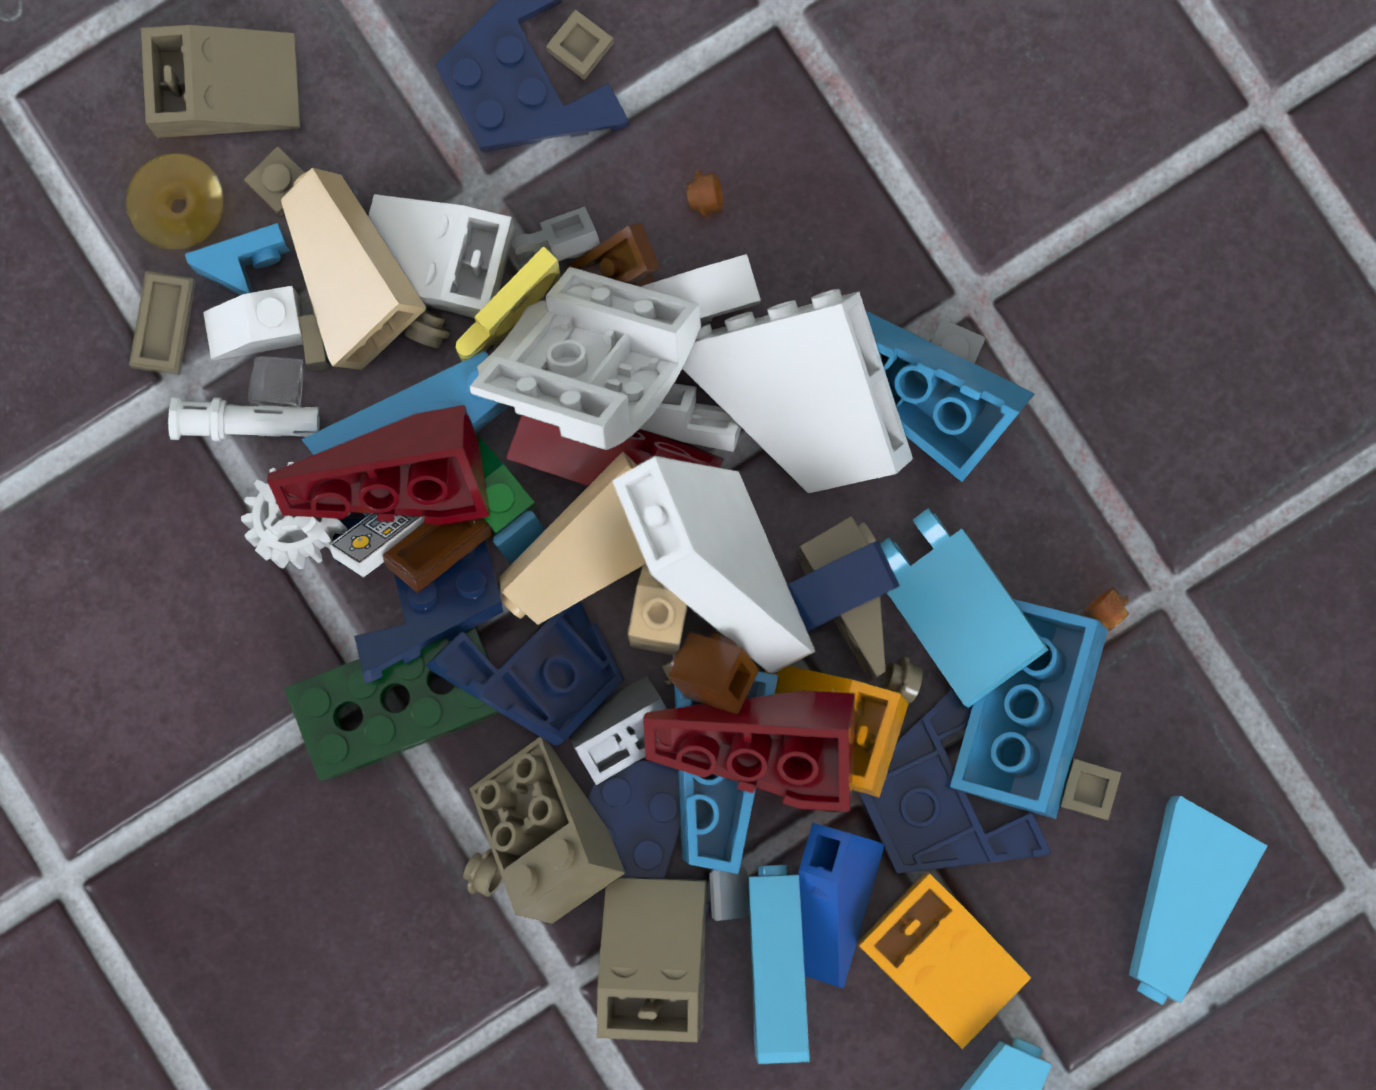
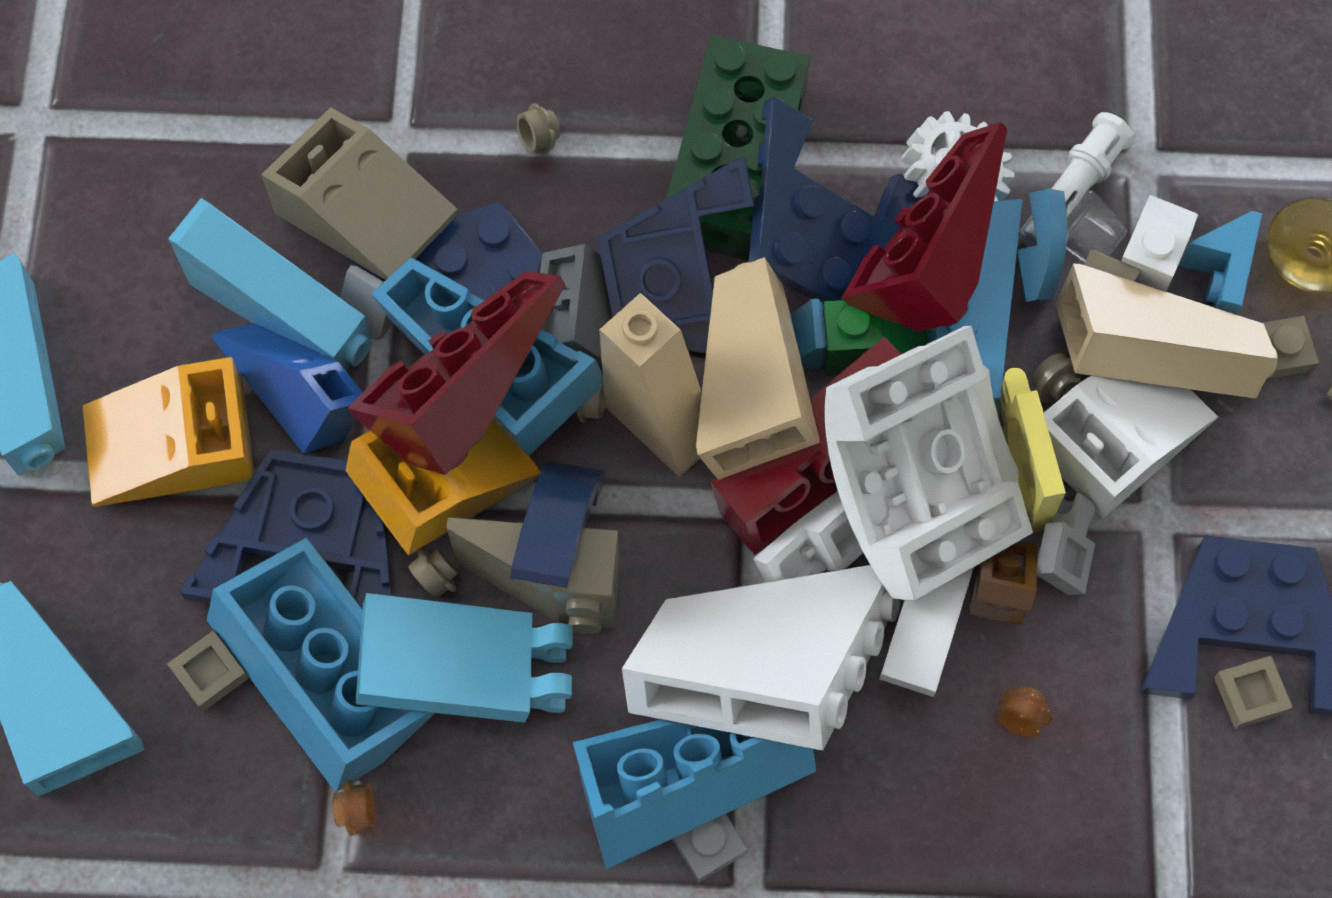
camera: 130 degrees right, 15 degrees down
(162, 323) = (1209, 176): dark tan tile -> none
(332, 398) = (1044, 263): none -> dark azure slope
(368, 540) = (886, 193): tile -> none
(433, 550) = (844, 238): reddish brown tile -> none
(544, 834) = (530, 182): dark tan slope -> none
(713, 671) = (555, 358): reddish brown brick -> none
(714, 555) = (664, 425): white slope -> none

